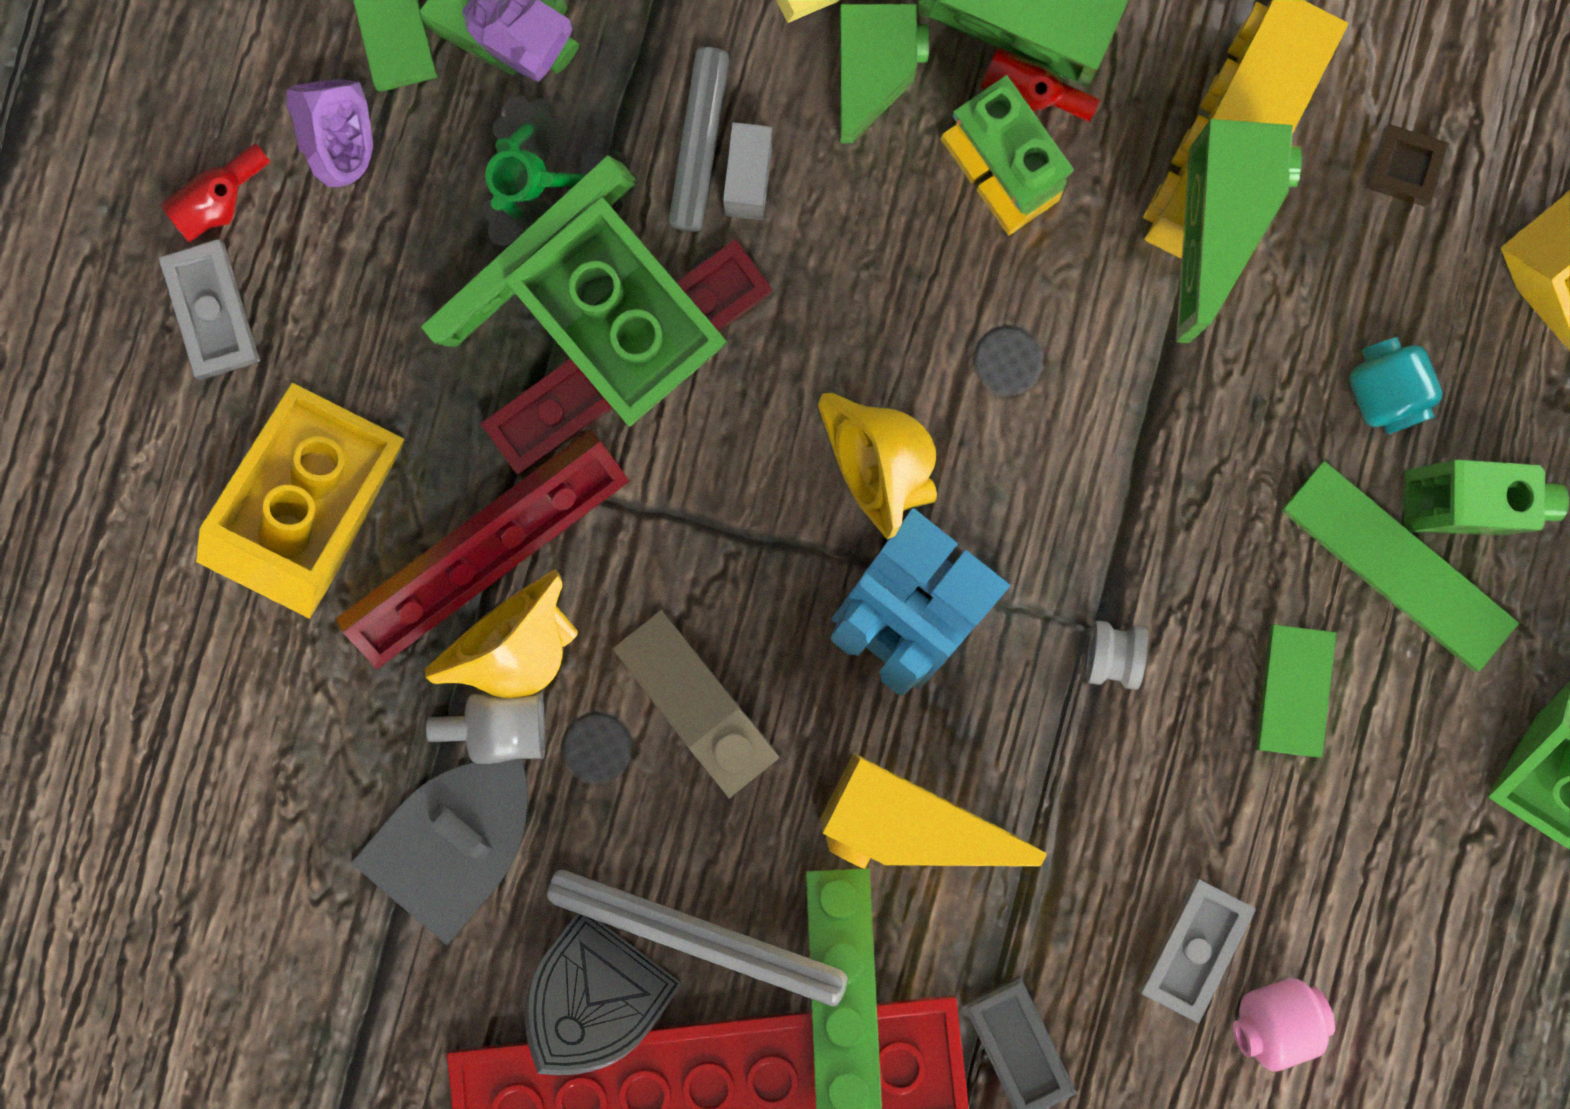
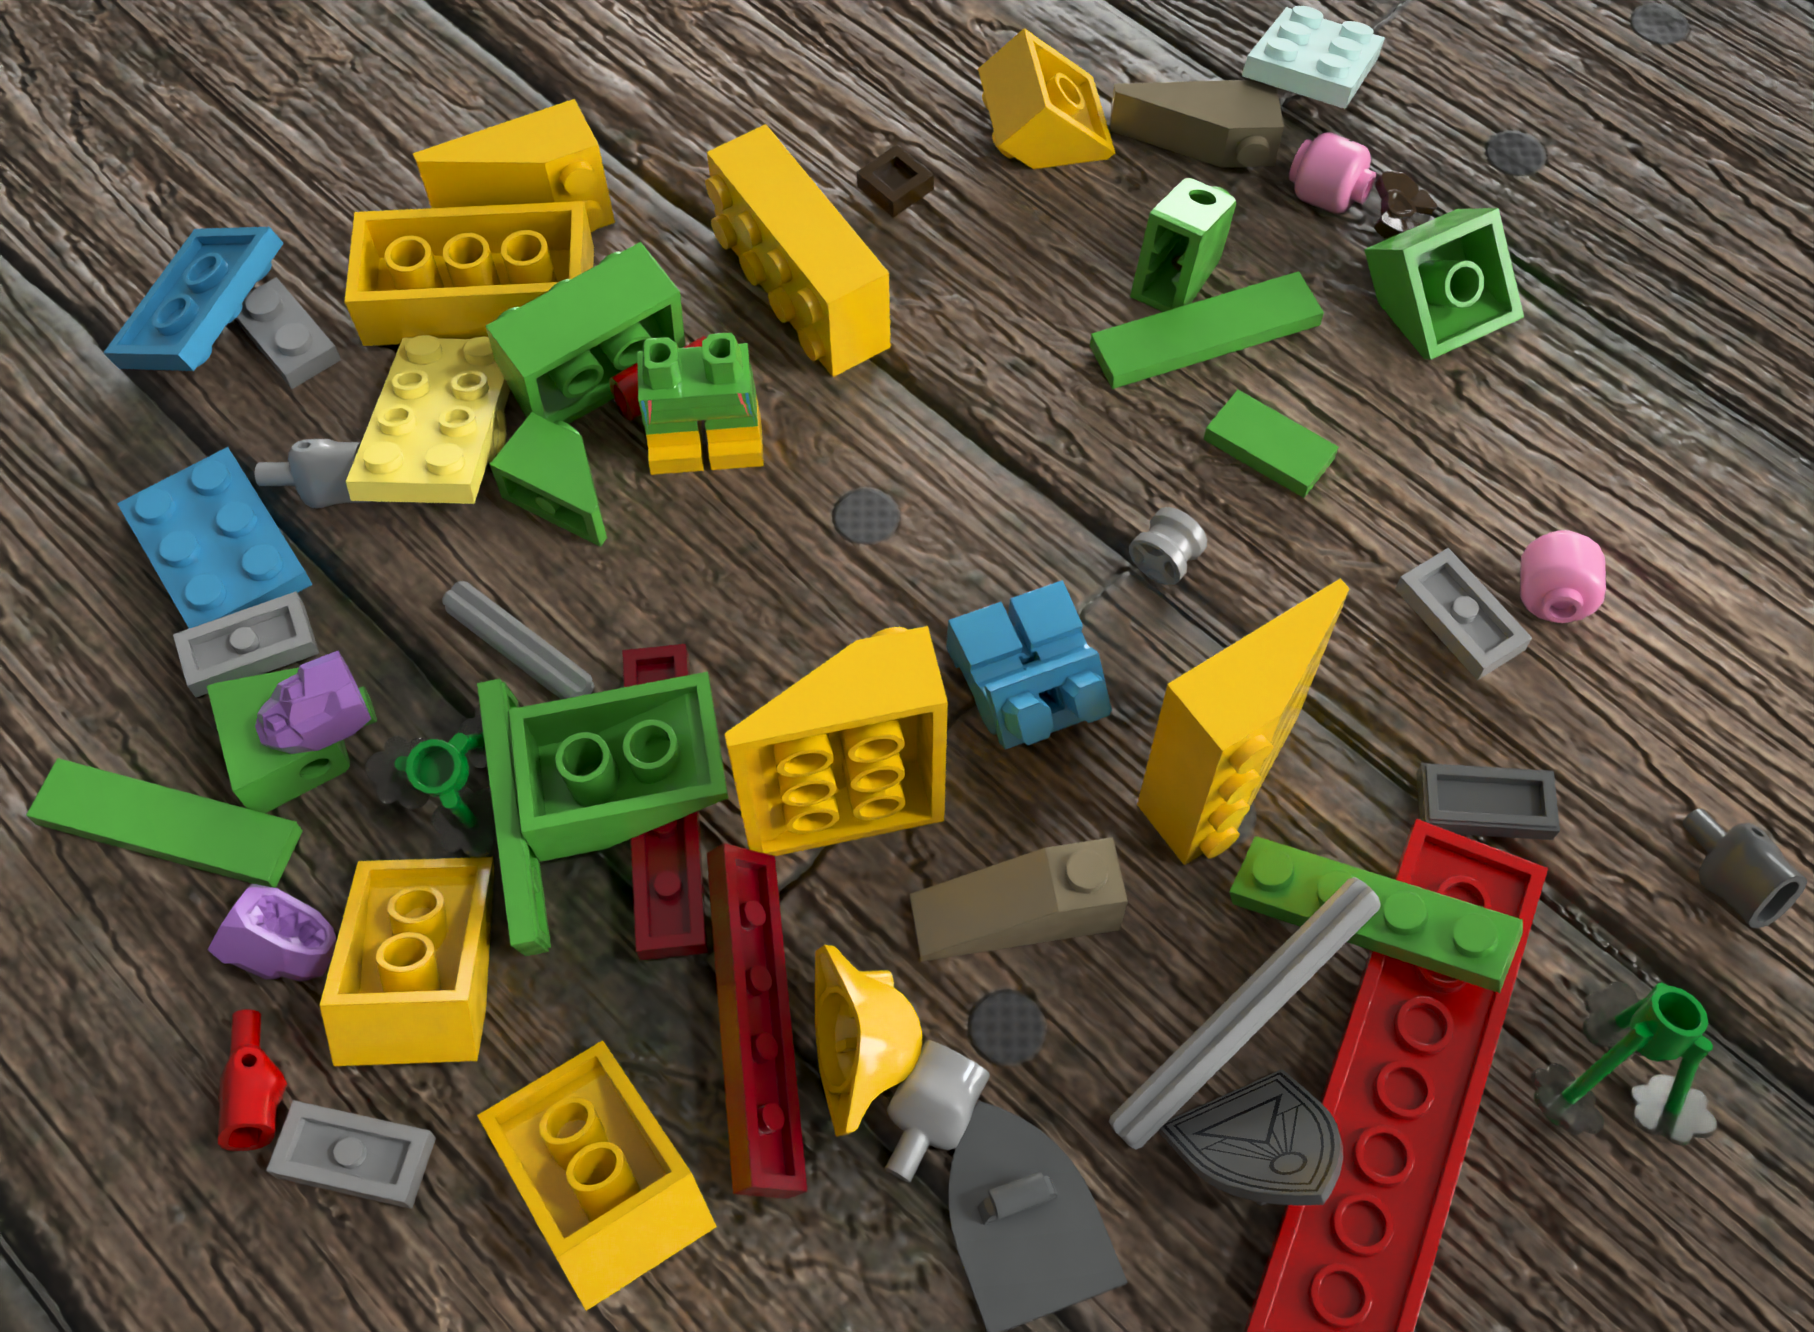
camera: 60 degrees left, 25 degrees down
(378, 249) = (411, 963): none -> yellow slope
(721, 511) = (846, 748): none -> yellow slope
(747, 171) = (573, 609): light grey piece -> none
(881, 457) = (884, 610): yellow hat -> none
(1232, 194) = (861, 234): bright green slope -> none
(1395, 386) = (1061, 259): teal head -> none

